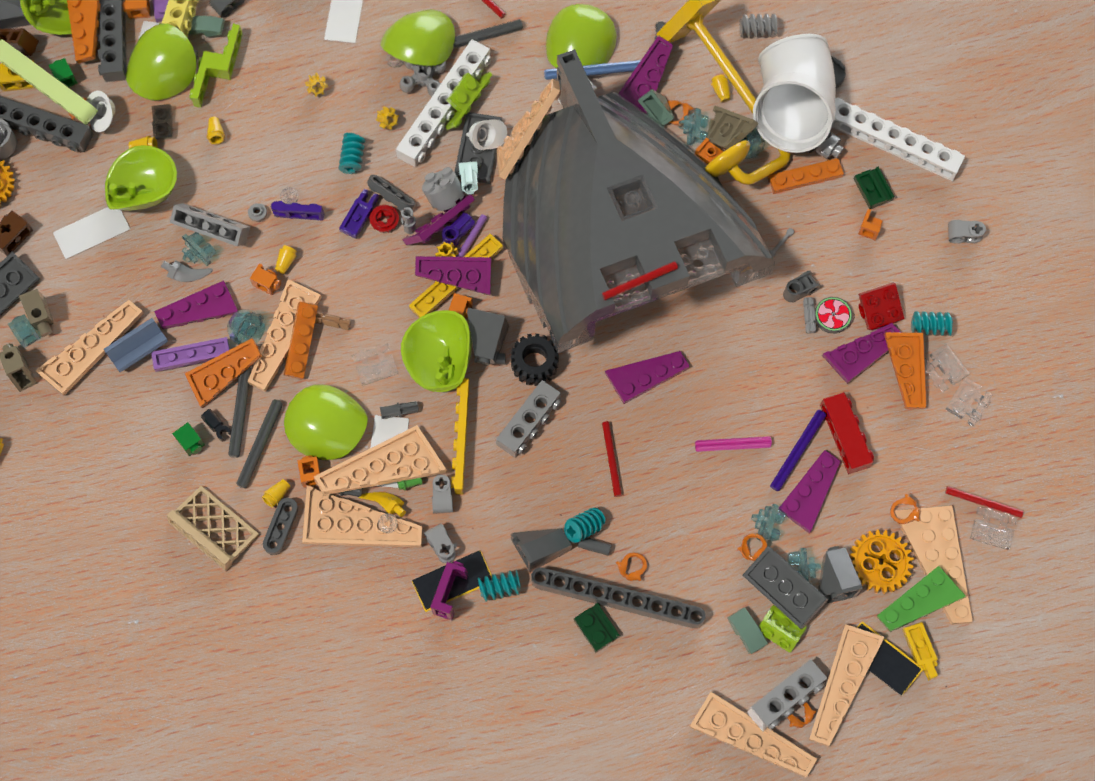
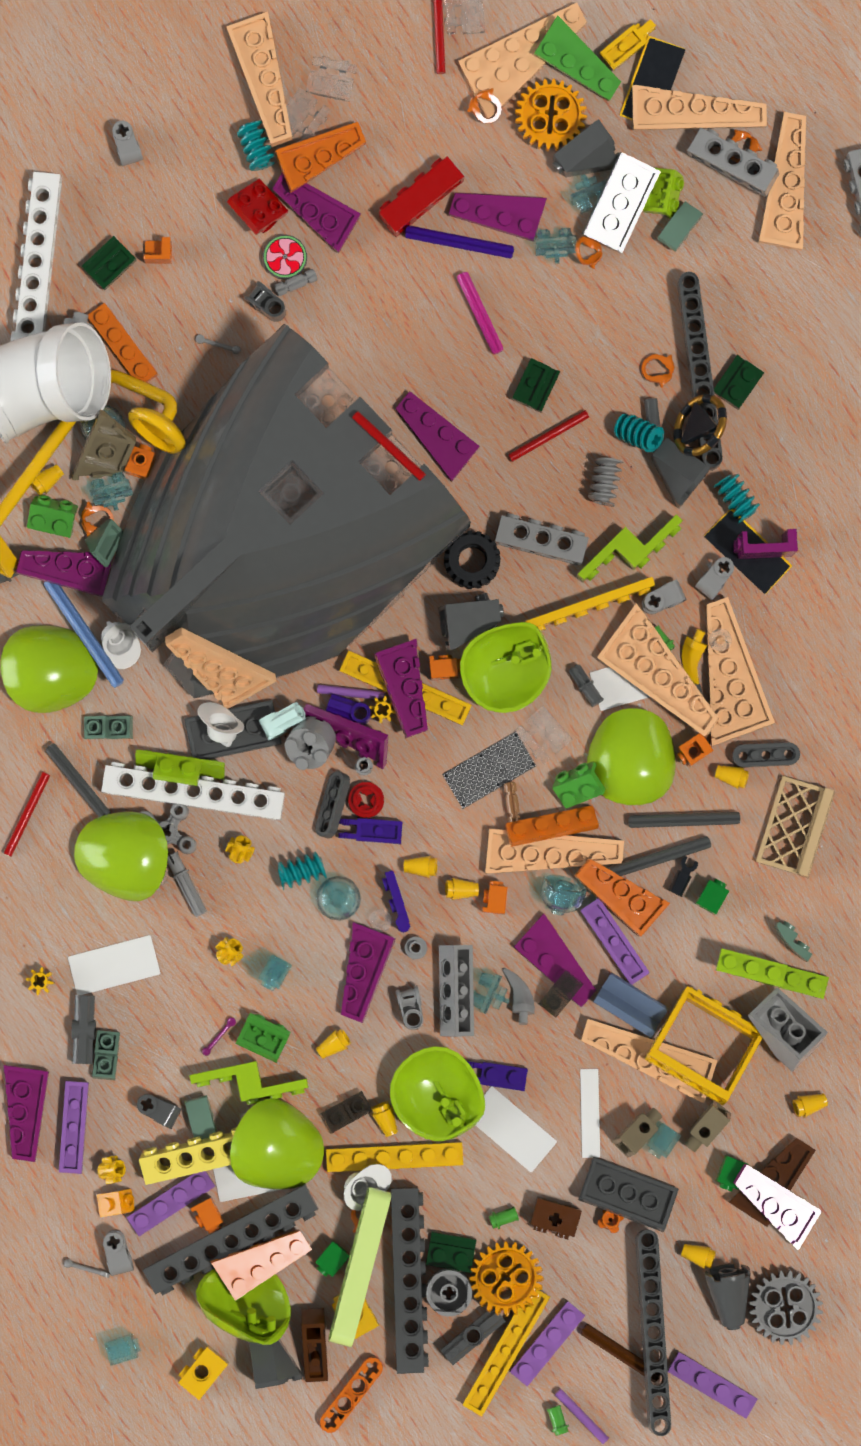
camera: 115 degrees left, 15 degrees up
(25, 155) = (451, 1252): none -> dark green plate
(29, 198) = (503, 1217): none -> bright green pin
(57, 451) = (787, 1029): none -> light grey slope
(58, 361) = (689, 1076): none -> yellow window
(73, 290) = (590, 1113): none -> white sticker
(105, 459) = (772, 973): none -> lime bracket
(113, 143) = (395, 1156): none -> yellow plate
(132, 485) = (788, 935): none -> sand green slope
(135, 234) = (501, 1075): none -> dark purple hinge
(171, 298) = (560, 993): none -> clear smoke slope
(217, 191) = (410, 1005): none -> light grey piece
(242, 84) = (263, 1037): none -> bright green bracket
(258, 171) = (365, 967): none -> magenta wing
(266, 72) = (207, 1050): none -> magenta hinge
(284, 106) = (274, 973): none -> clear light blue slope
(315, 238) = (421, 866): none -> yellow cone
(320, 173) = (338, 898): none -> clear light blue cylinder
(323, 369) = (578, 785): none -> bright green bracket
(366, 315) = (489, 770): none -> flat silver sticker
(389, 74) = (186, 884): none -> light grey axle
(492, 484) = (630, 549): none -> lime bracket
(518, 66) = (108, 727): none -> sand green slope
(555, 485) = (604, 480): none -> light grey piece
(569, 570) = (699, 425): none -> piece
(656, 463) = (536, 385): none -> dark green plate
(692, 82) = (52, 516): none -> bright green bracket
(1006, 351) = (259, 63): none -> light nougat wing

